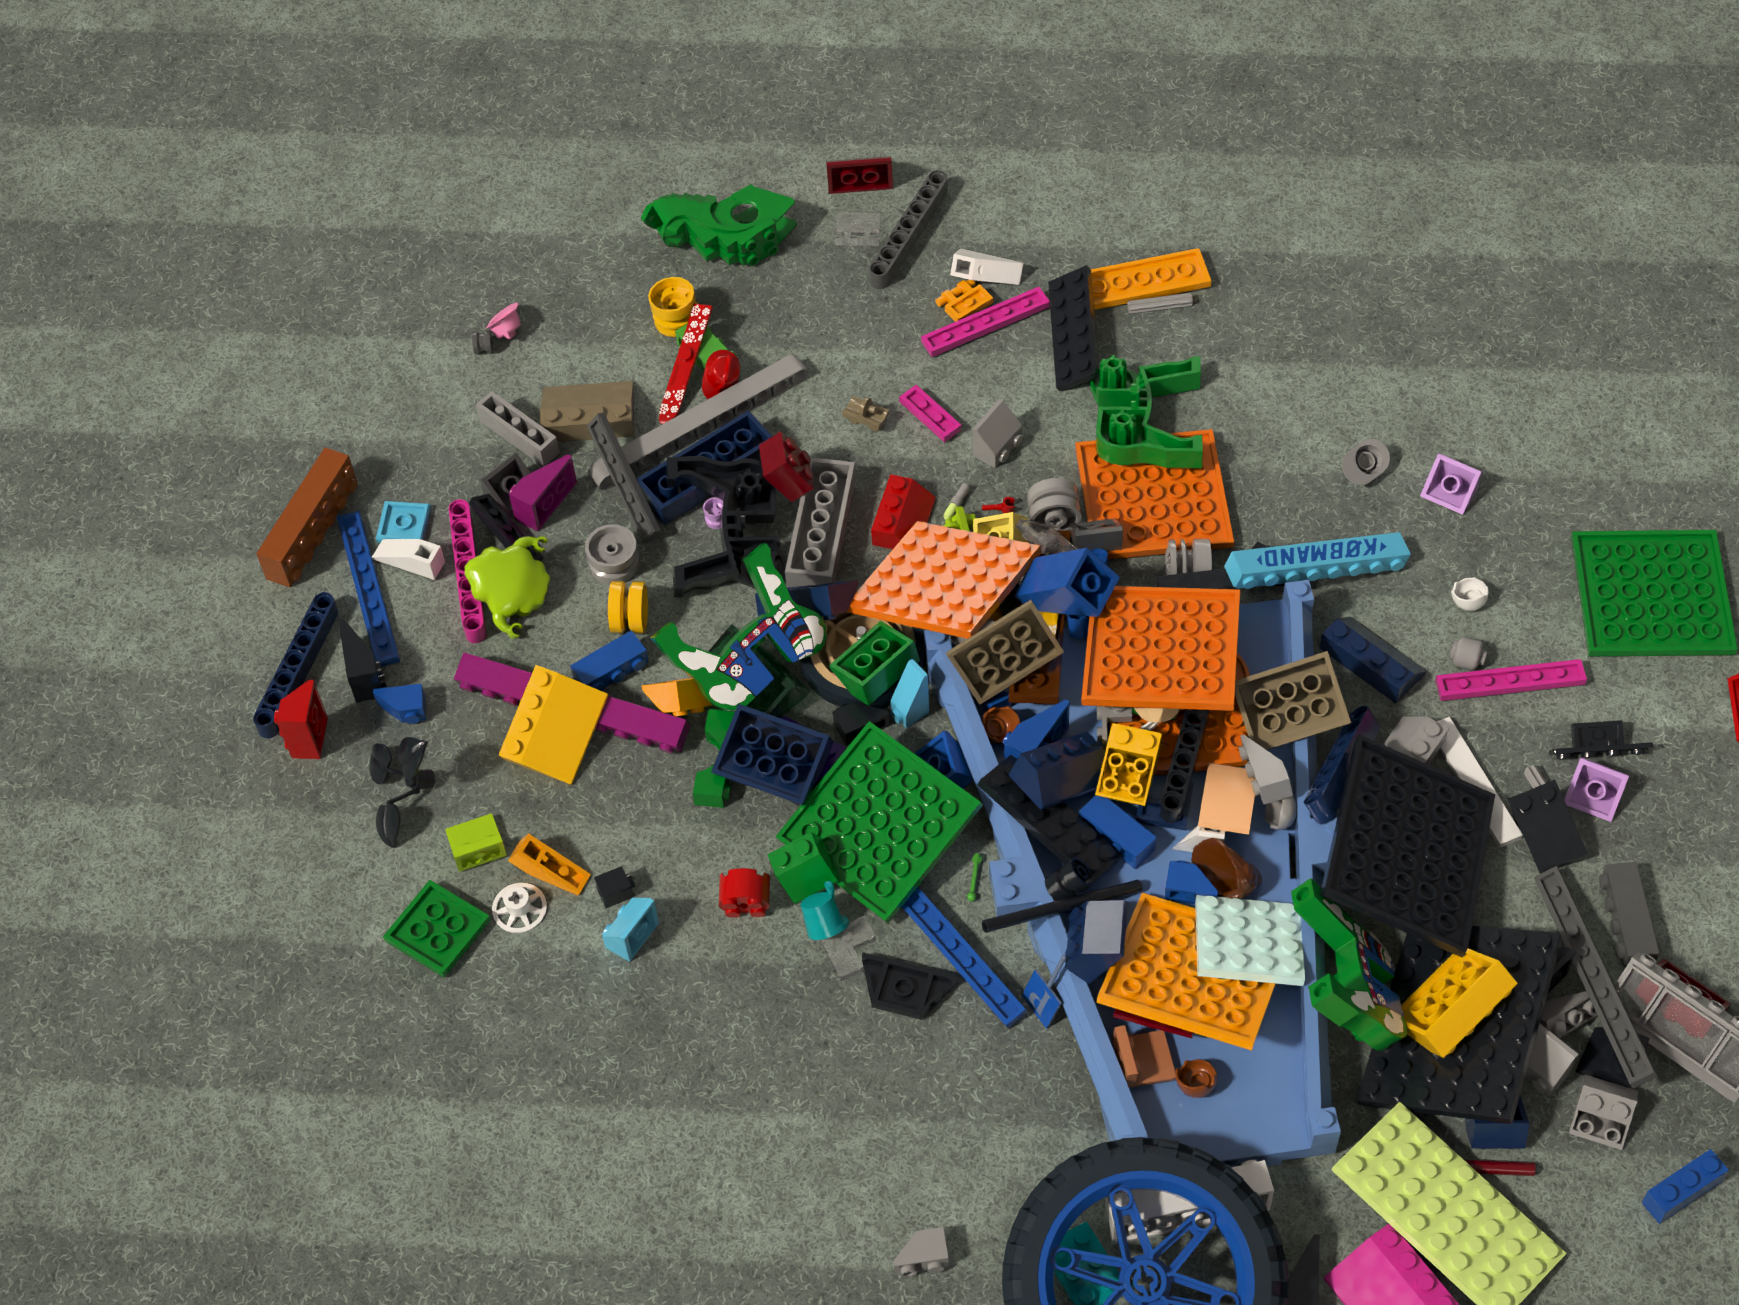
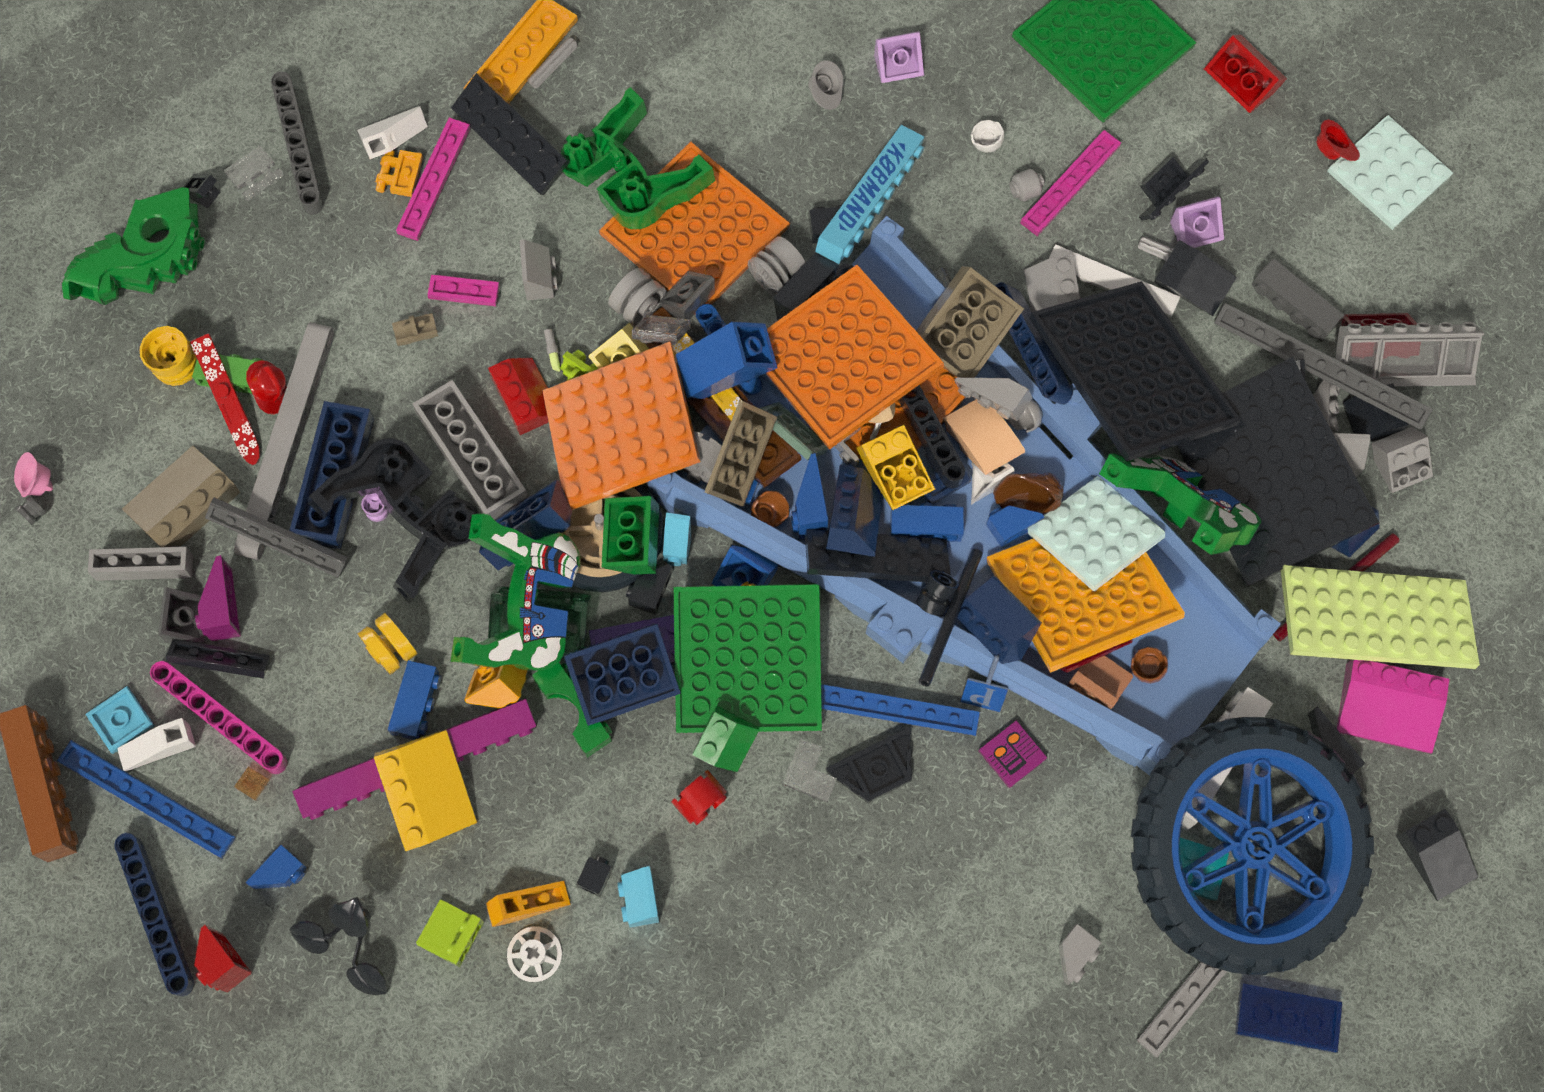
camera: 50 degrees left, 15 degrees up
(361, 667) = (221, 874): black slope -> none
(436, 928) = (489, 1027): green plate -> none
(446, 633) = (251, 783): none -> clear orange tile
(509, 581) = (269, 700): lime piece -> none
(612, 554) = (315, 604): light grey wheel -> none
(786, 466) = (408, 427): dark red brick -> none
(809, 216) = (202, 189): none -> black slope
(822, 914) = (774, 766): teal hat -> none
(859, 174) = (210, 122): dark red slope -> none
(977, 858) = (834, 624): bright green hinge -> none
(1002, 506) = (590, 326): red hand -> none
(1023, 1067) = (1012, 754): none -> magenta tile
(1070, 681) = (795, 431): none -> sand green tile
(1370, 658) = (965, 240): dark blue slope -> none
(1455, 1000) = (1264, 462): yellow slope -> none
(1685, 1186) = (1495, 470): blue brick -> none

